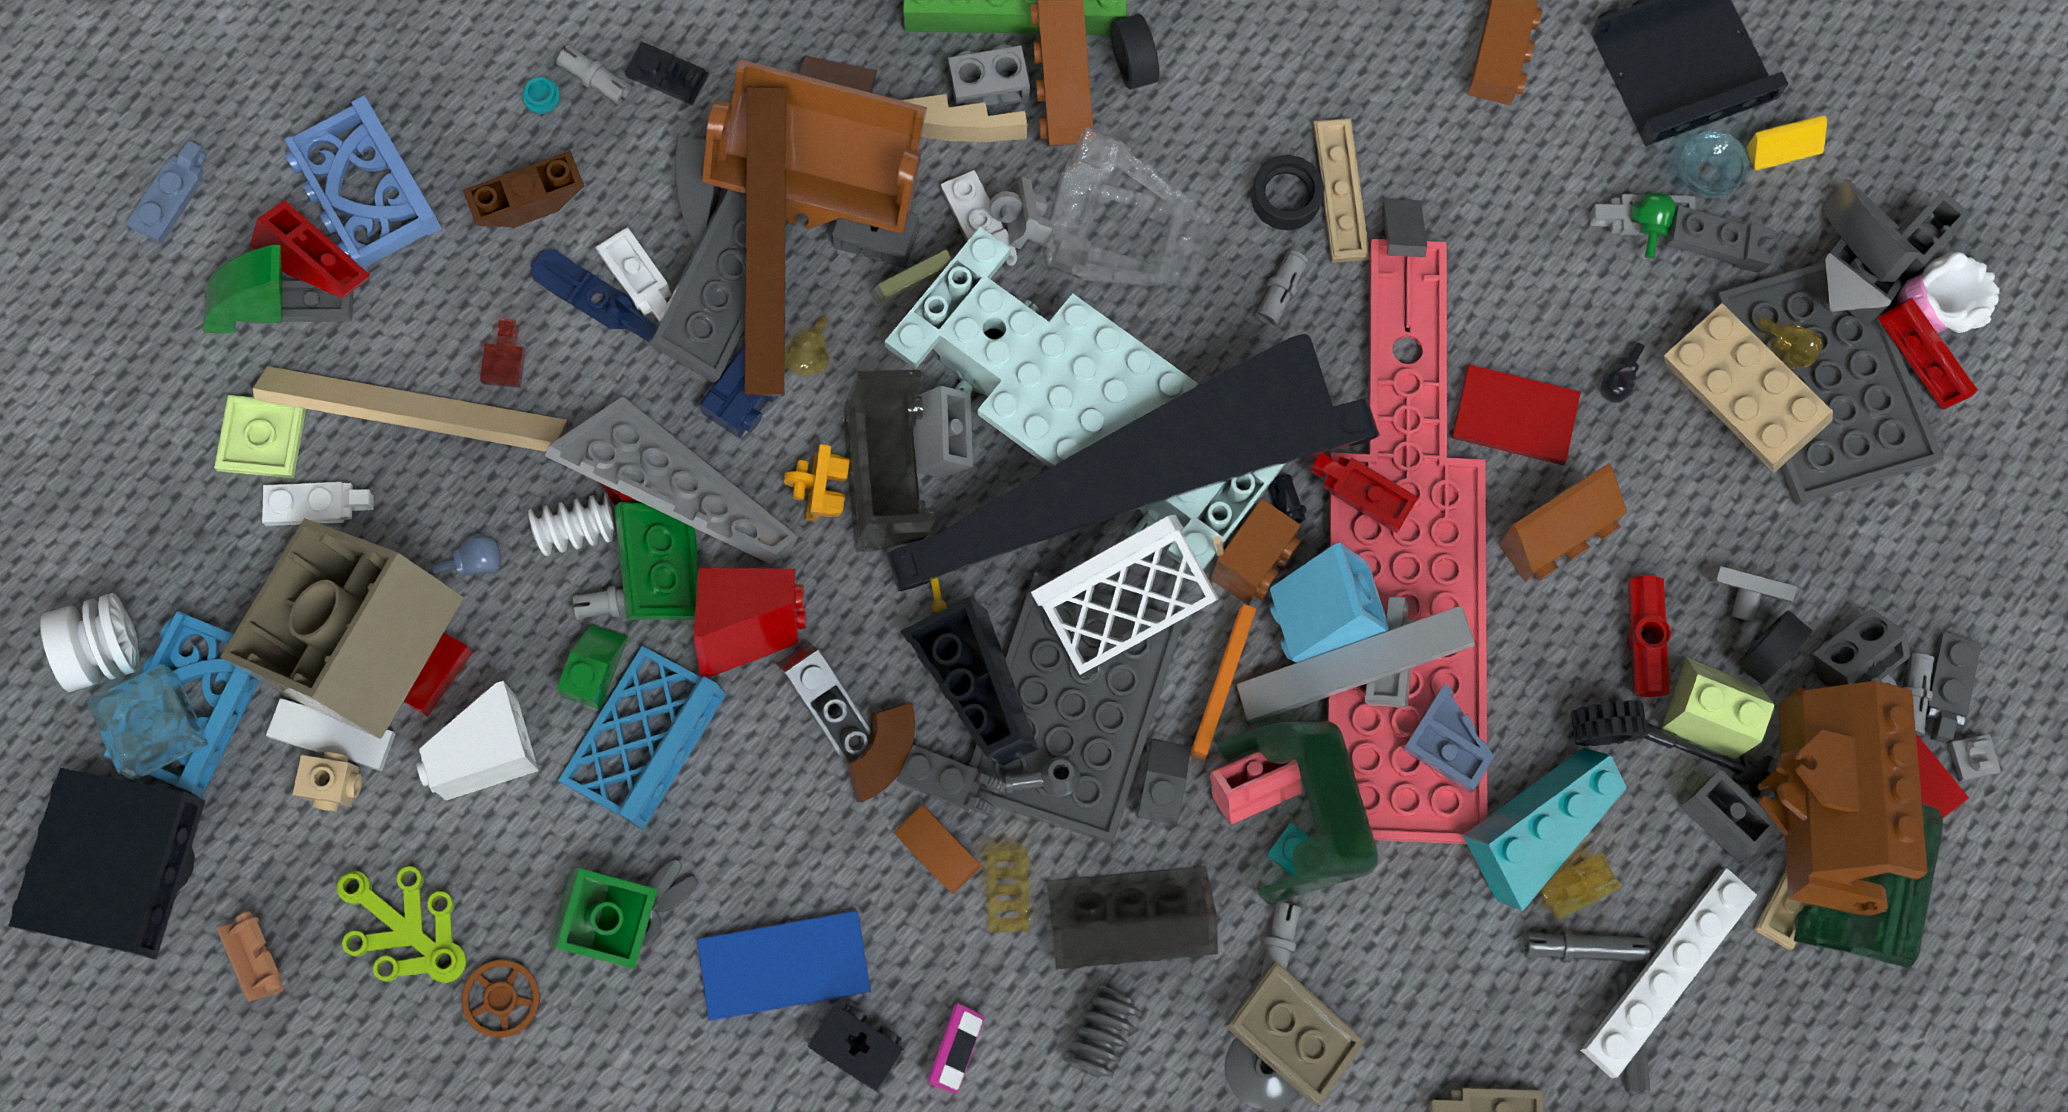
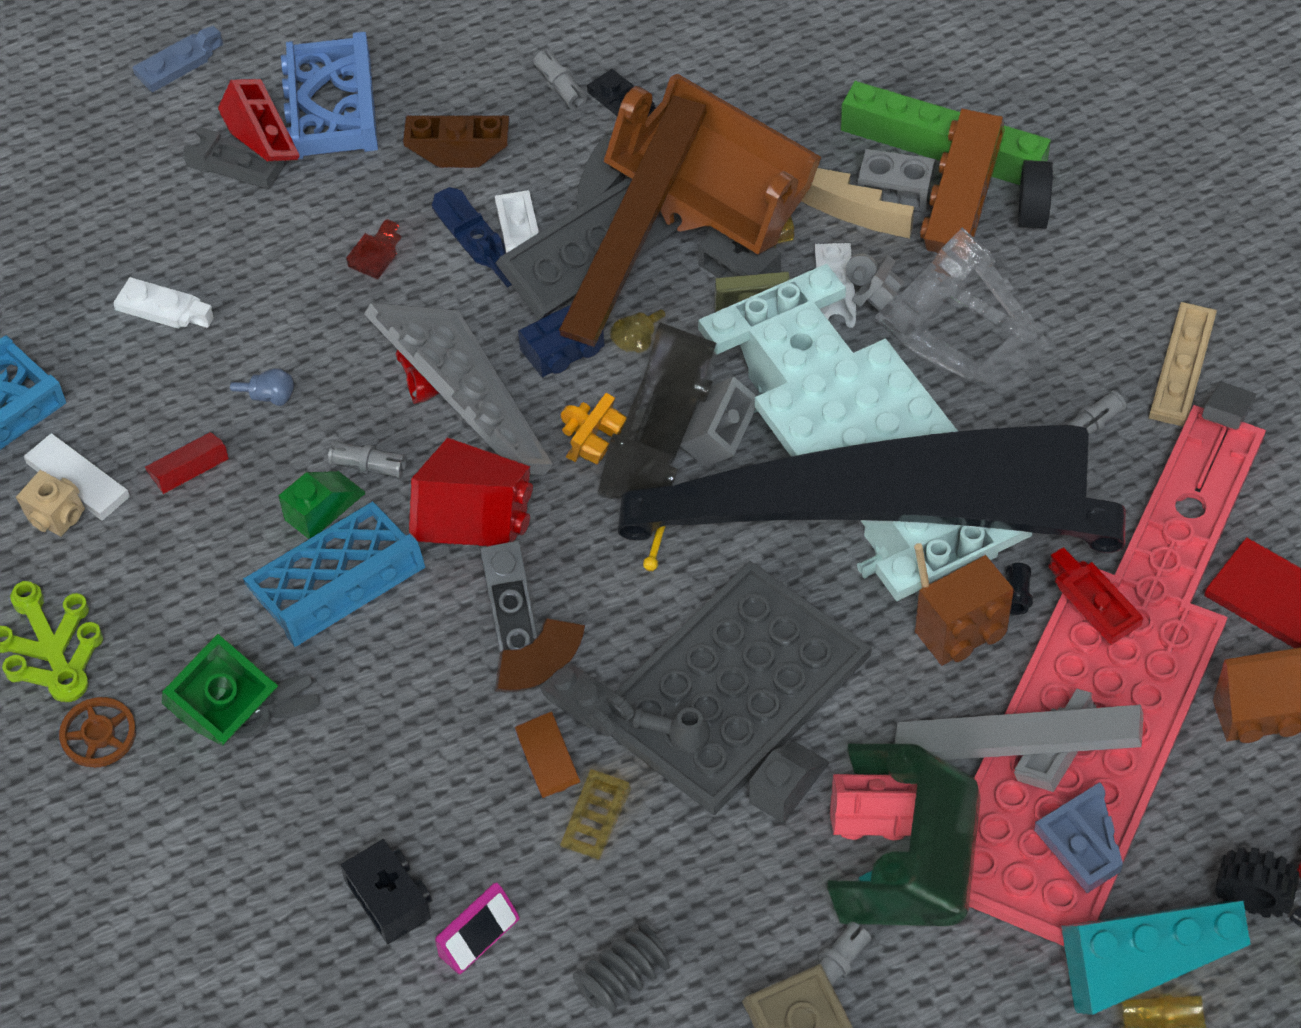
camera: 30 degrees right, 20 degrees down
(245, 291) = (194, 125): green slope -> none
(259, 437) = (148, 245): yellowish green tile -> none
(343, 627) = (128, 378): dark tan brick -> none
(408, 409) = (269, 258): tan tile -> none
(479, 747) = (189, 518): white slope -> none
(541, 95) = (509, 81): teal plate -> none
(572, 525) = (364, 388): white piece -> none
(656, 563) = (415, 431): green tile -> none
(783, 966) = (358, 801): blue tile -> none
(974, 676) = (650, 616): black wedge -> none
(1108, 564) = (820, 557): white fence -> none
(1132, 917) = (699, 882): clear smoke slope -> none
(1222, 682) = (886, 710): orange tile -> none
(1287, 219) = (1128, 368): black tyre -> none
(1327, 604) = (1014, 668): medium azure slope -> none

